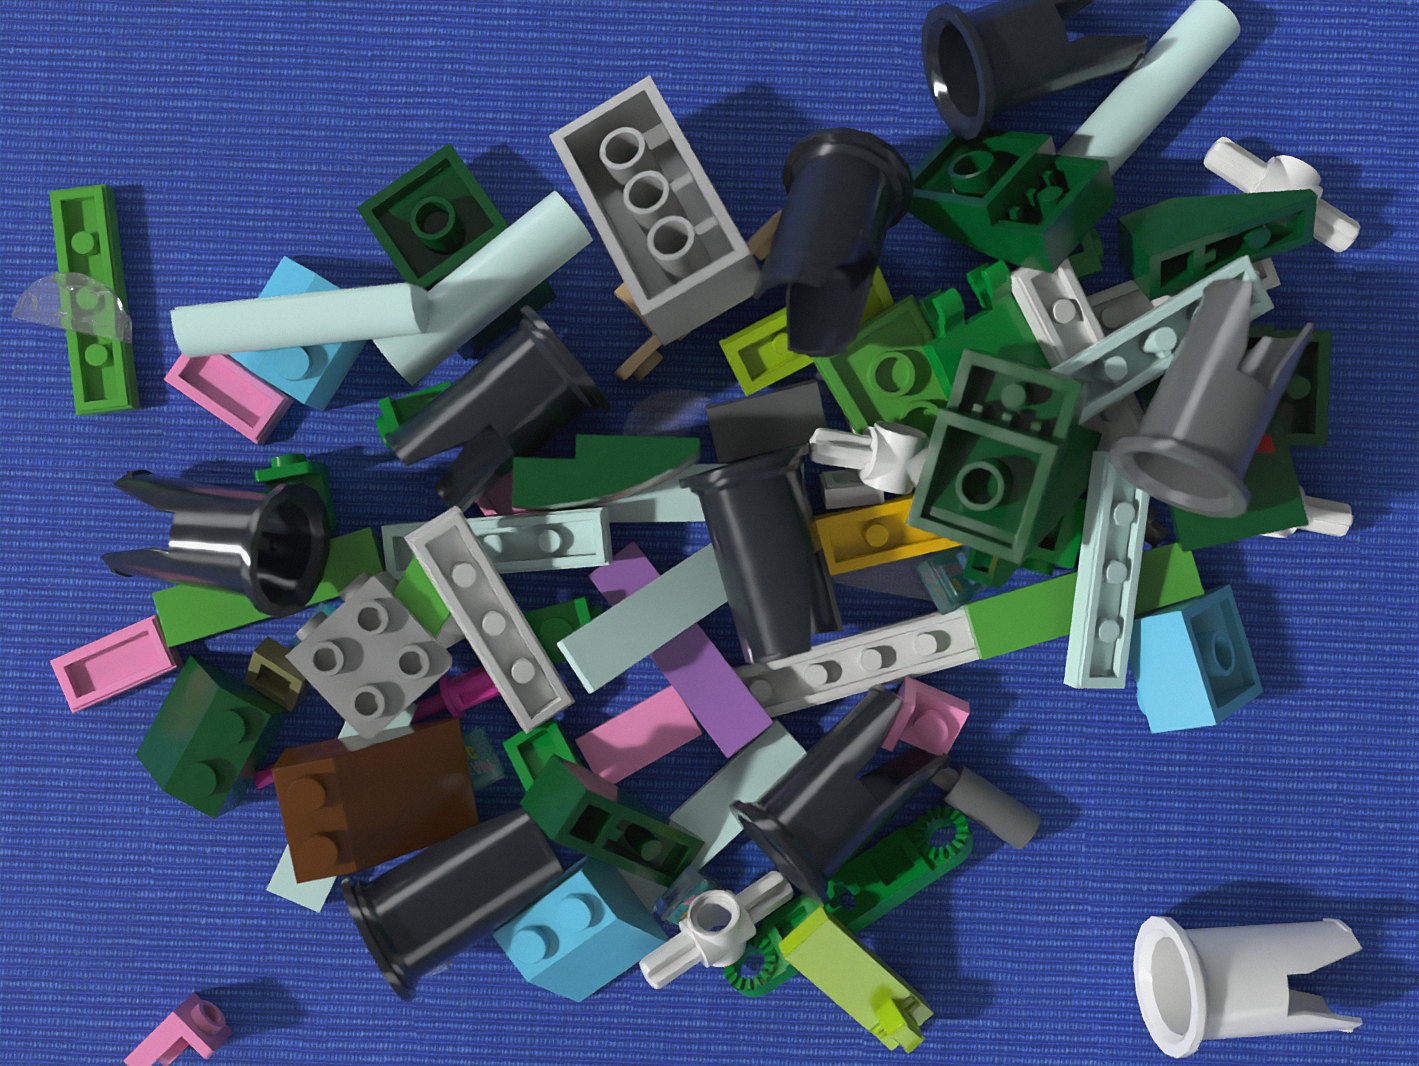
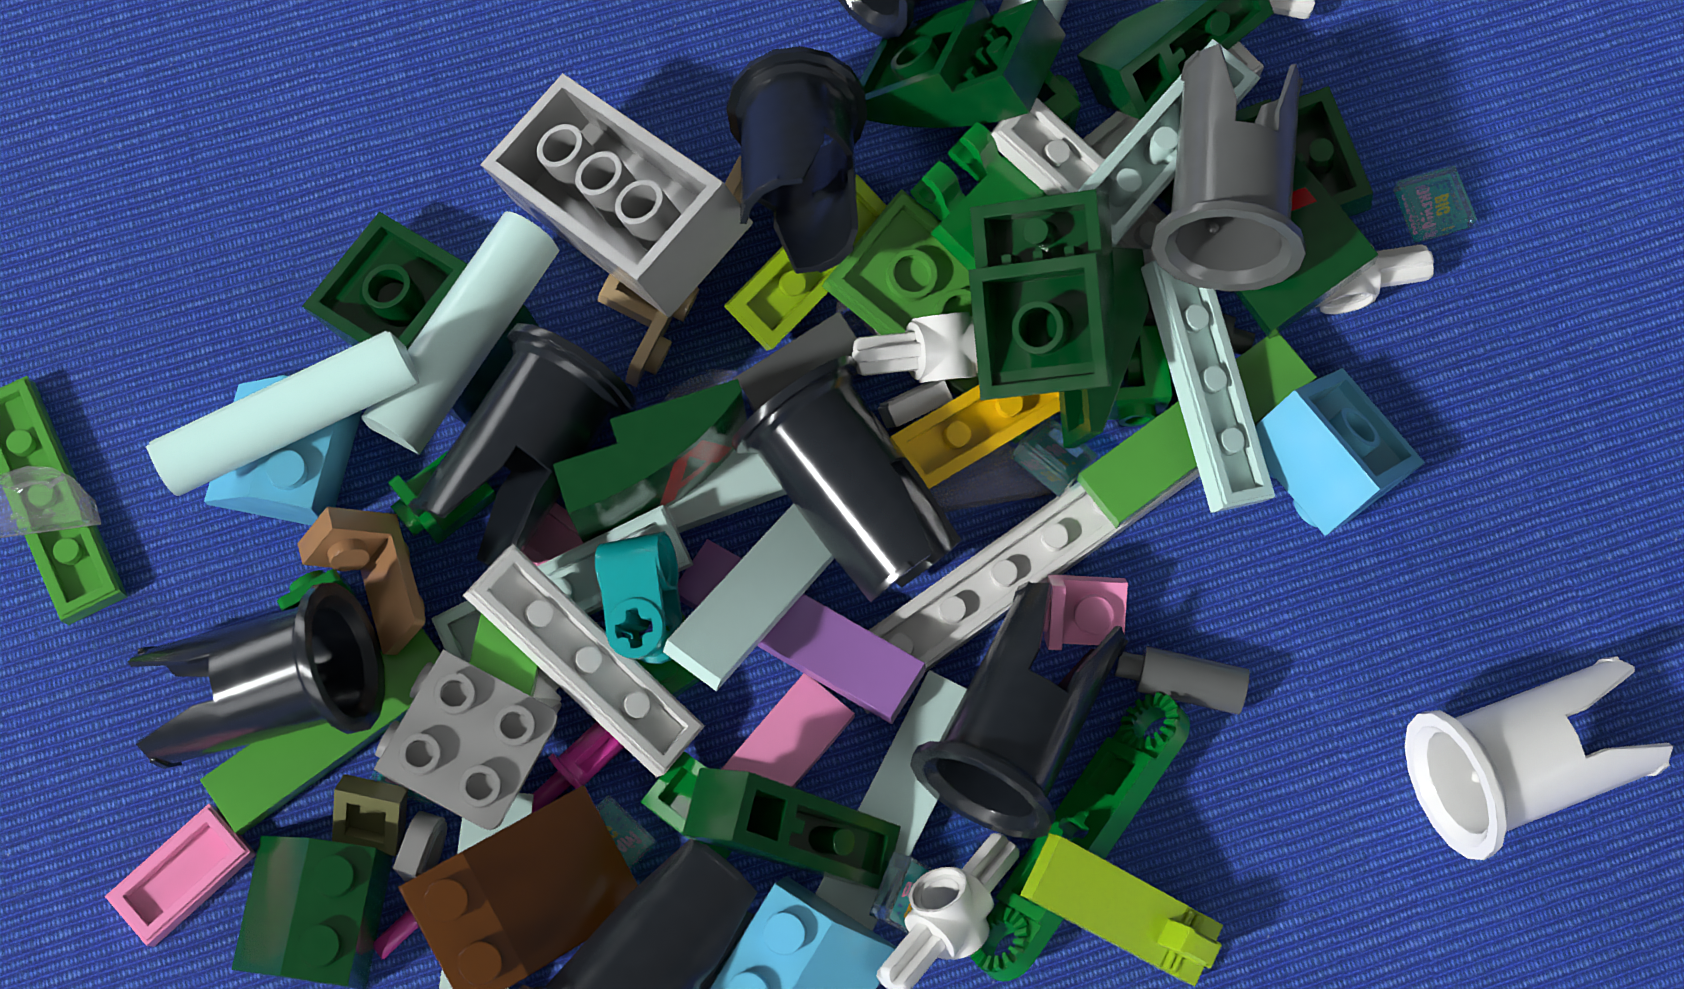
camera: 20 degrees left, 15 degrees down
(231, 393) = (220, 539): bright pink tile -> none
(309, 720) = (421, 845): none -> light grey tile
(358, 460) = (376, 547): none -> medium nougat bracket
(554, 579) = (638, 587): none -> teal piece
(1375, 466) = (1434, 204): none -> clear light blue tile

